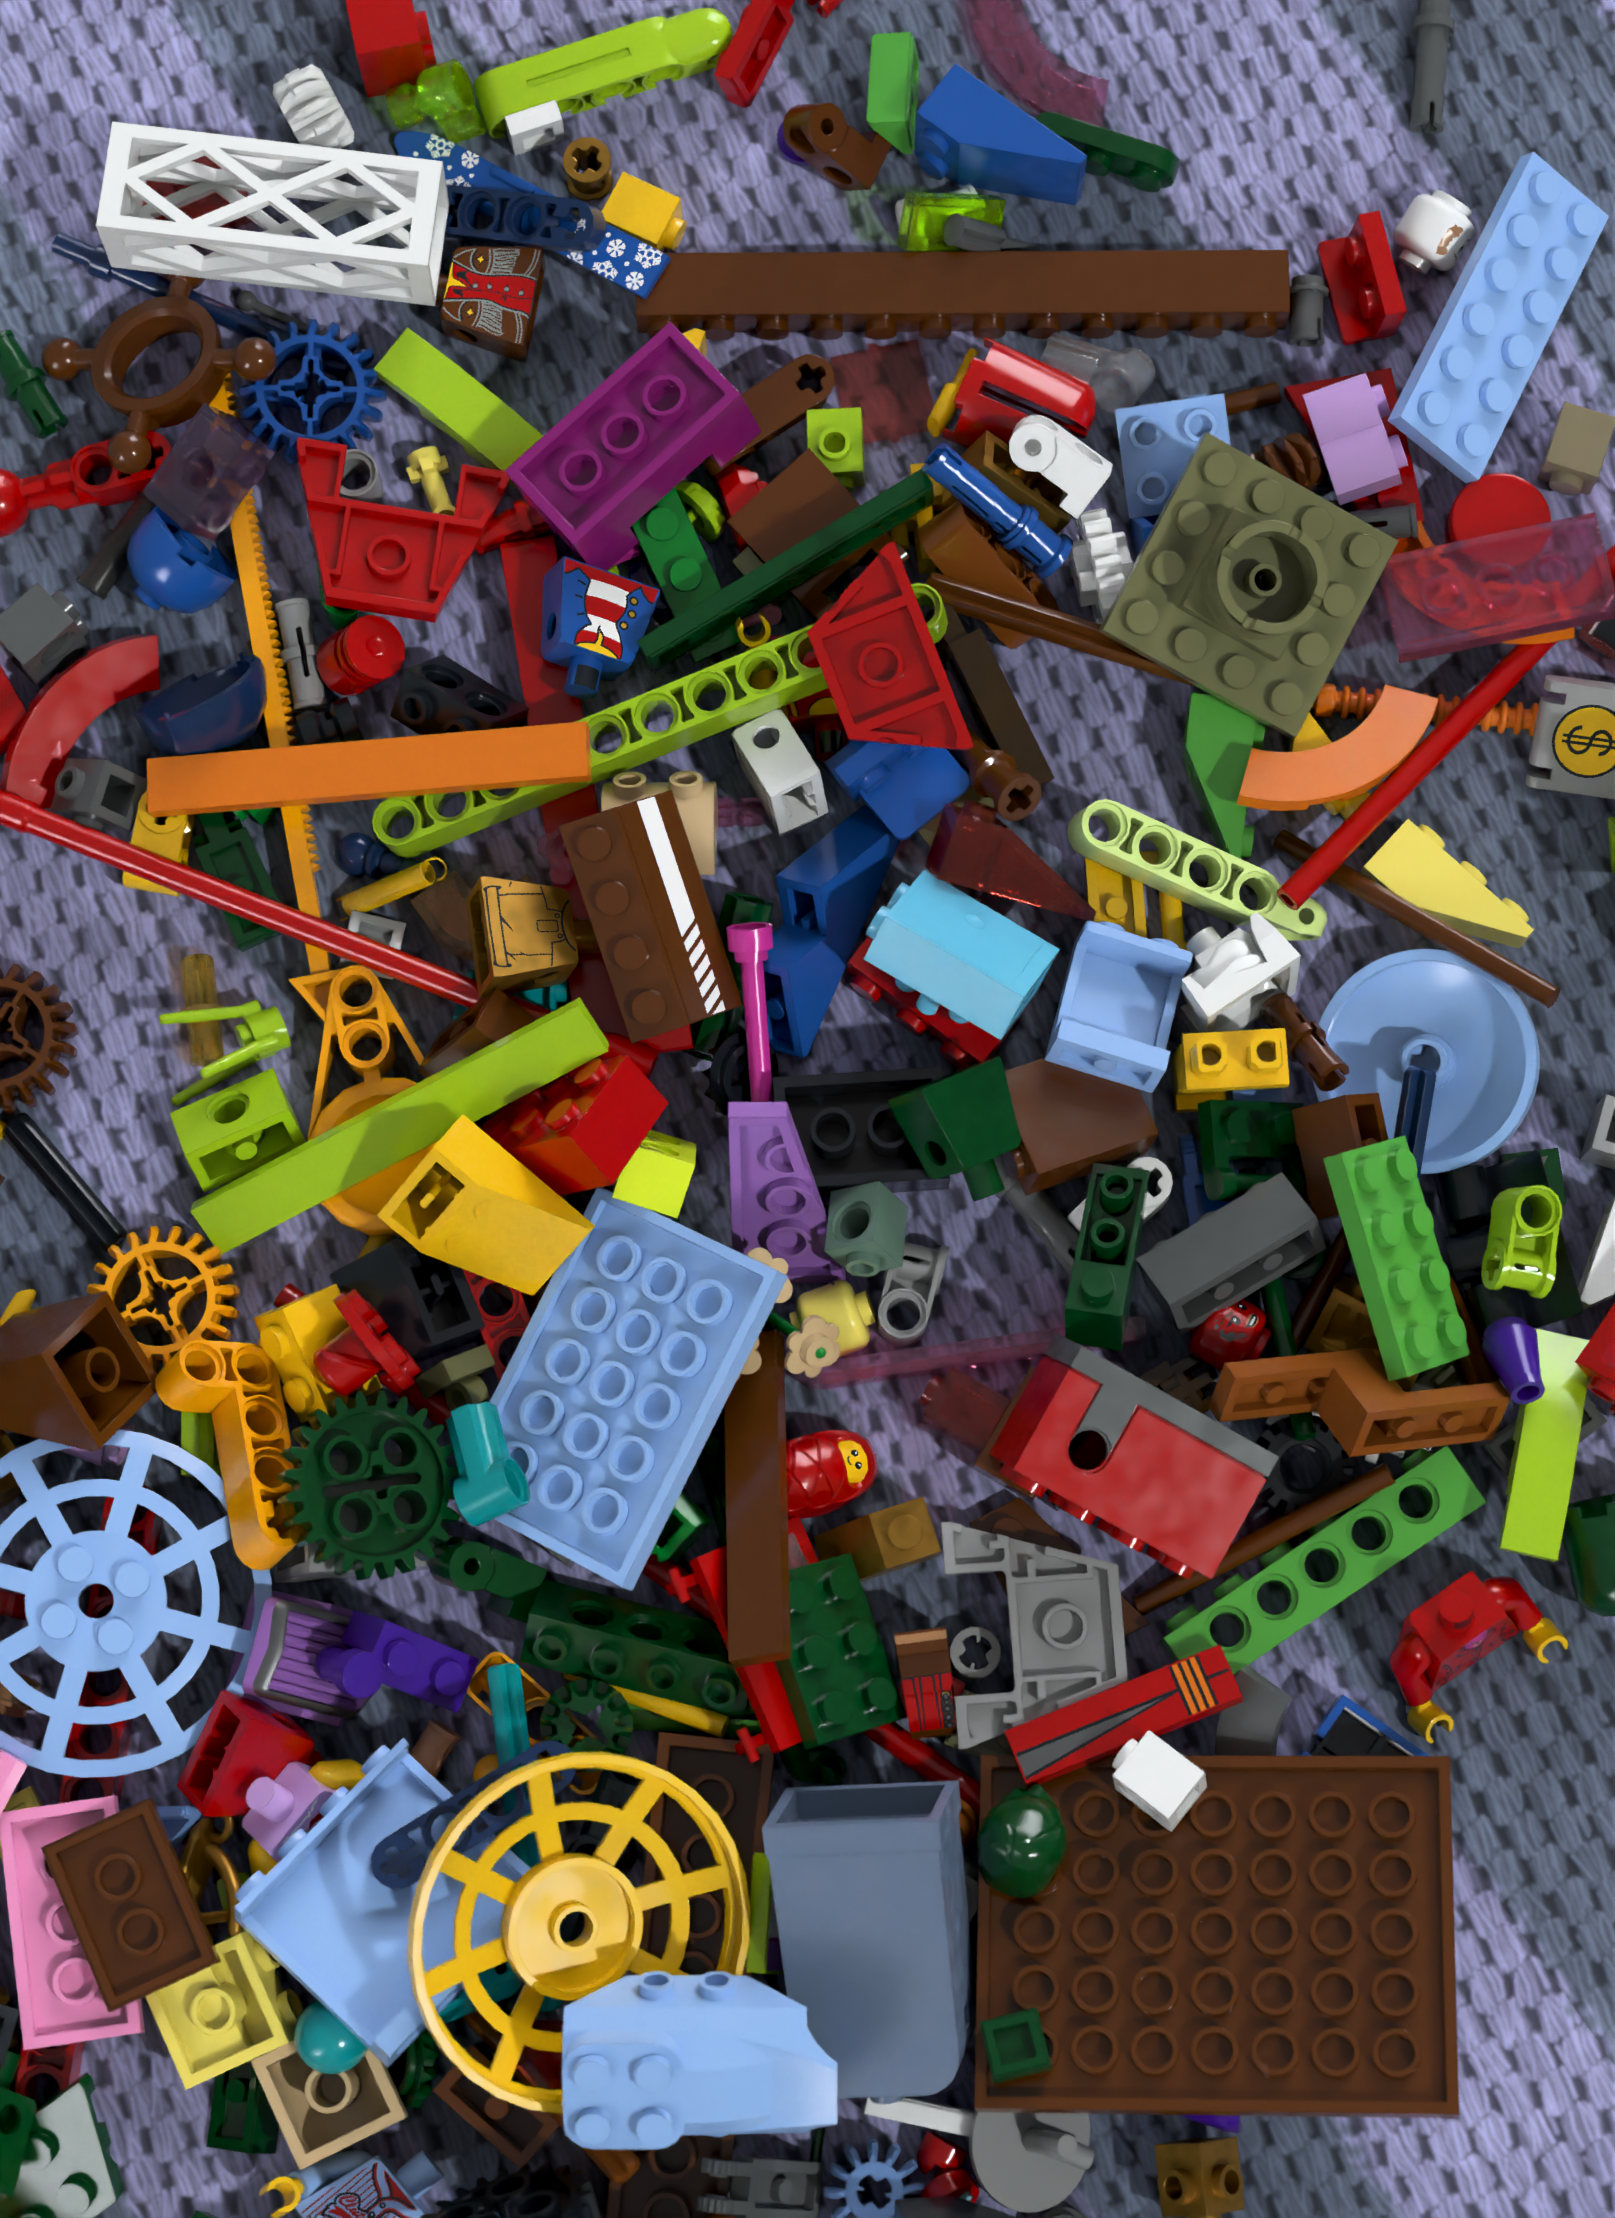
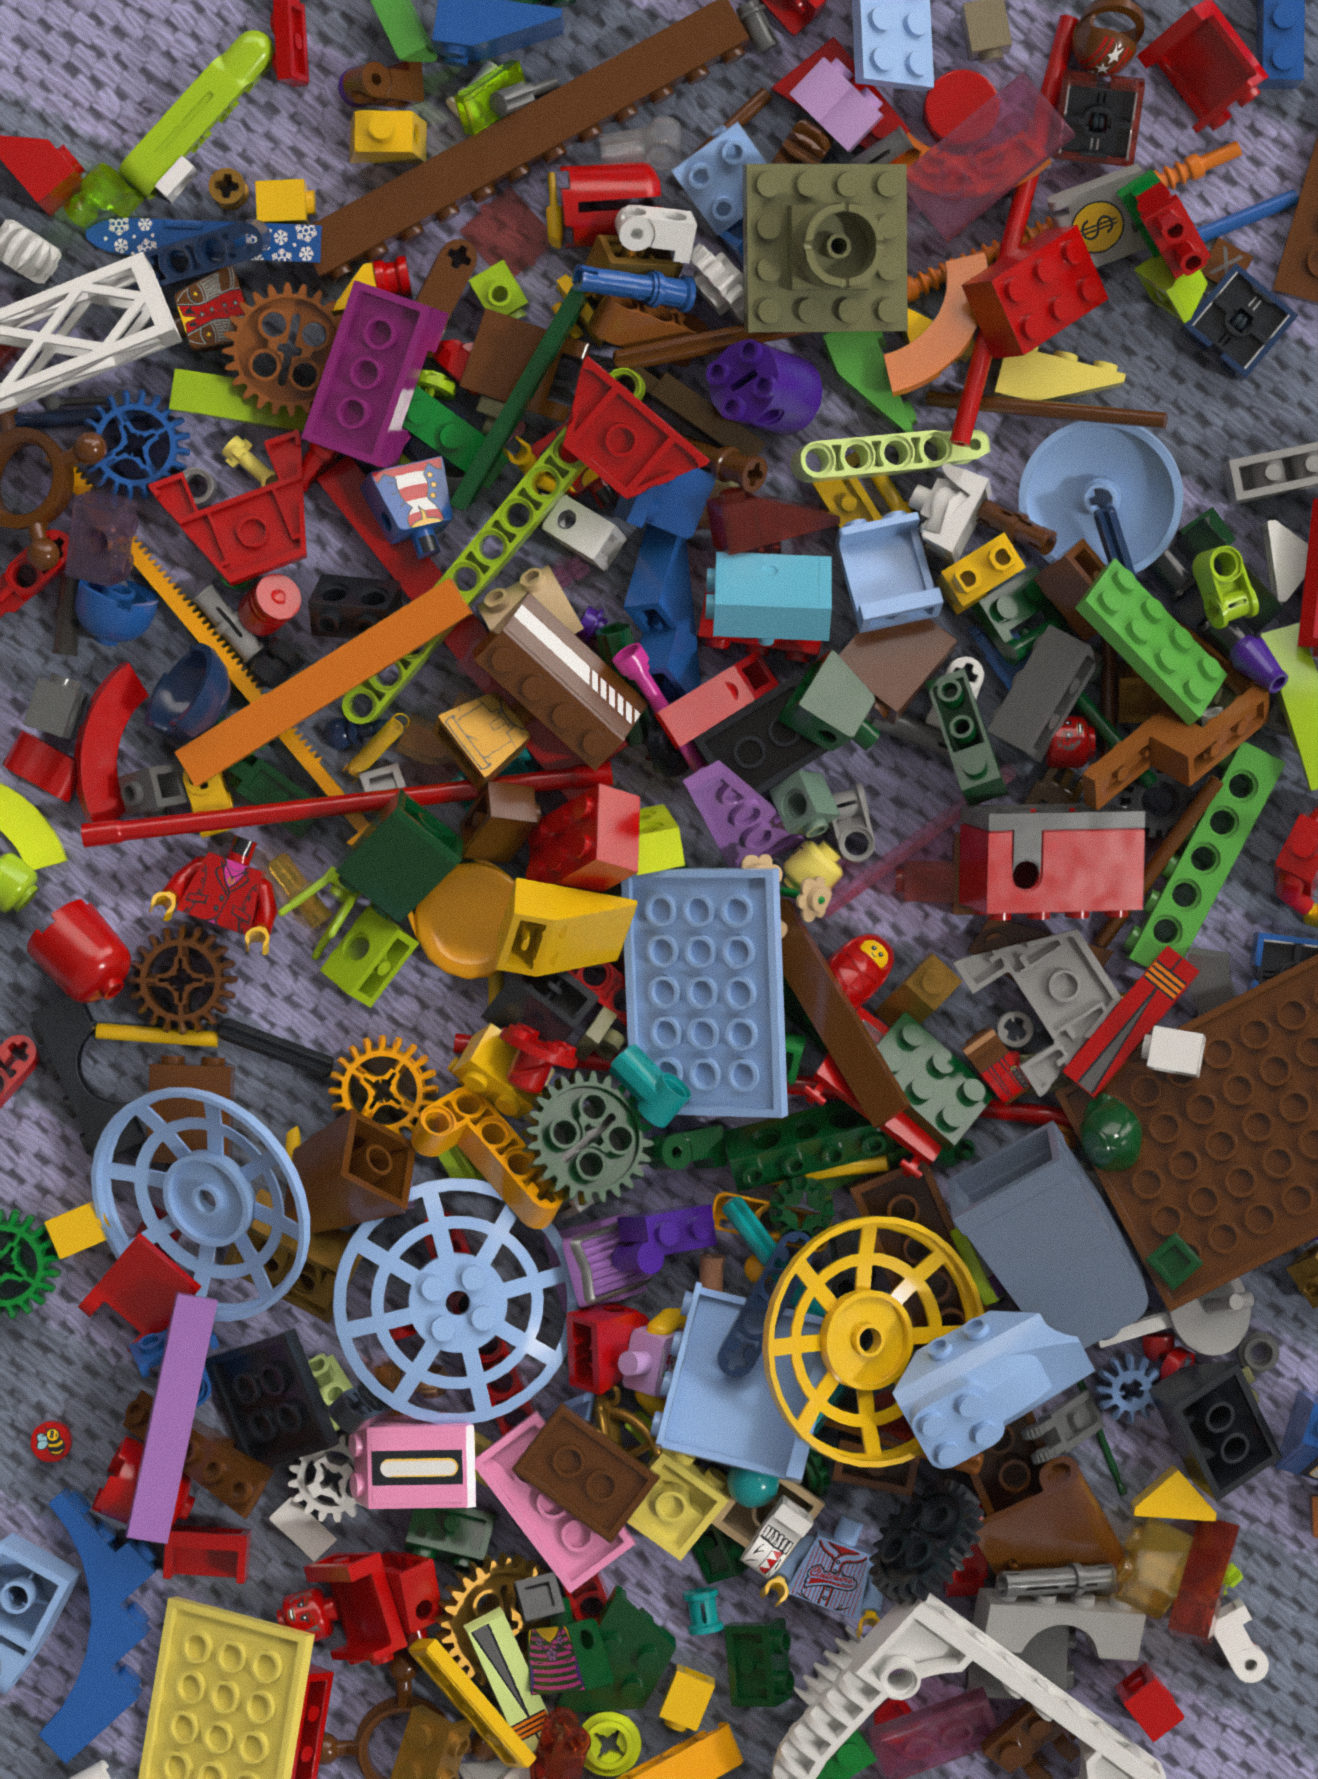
camera: 30 degrees left, 10 degrees up
(109, 961) = (224, 893): none -> red torso
(165, 2189) = (694, 1599): none -> teal bush
(321, 2122) = (777, 1536): none -> white leg
(338, 1021) = (400, 857): none -> dark green slope
(400, 1126) = (476, 901): lime tile -> none
(514, 342) = (252, 340): none -> dark orange gear
(727, 360) = (393, 276): none -> red wheel
(728, 879) = (591, 621): none -> dark purple plate
(800, 204) = (387, 137): none -> yellow torso
(825, 1043) = (716, 699): none -> slope
(1088, 712) = (764, 387): none -> dark purple cylinder
(1474, 771) = (1035, 292): none -> red brick

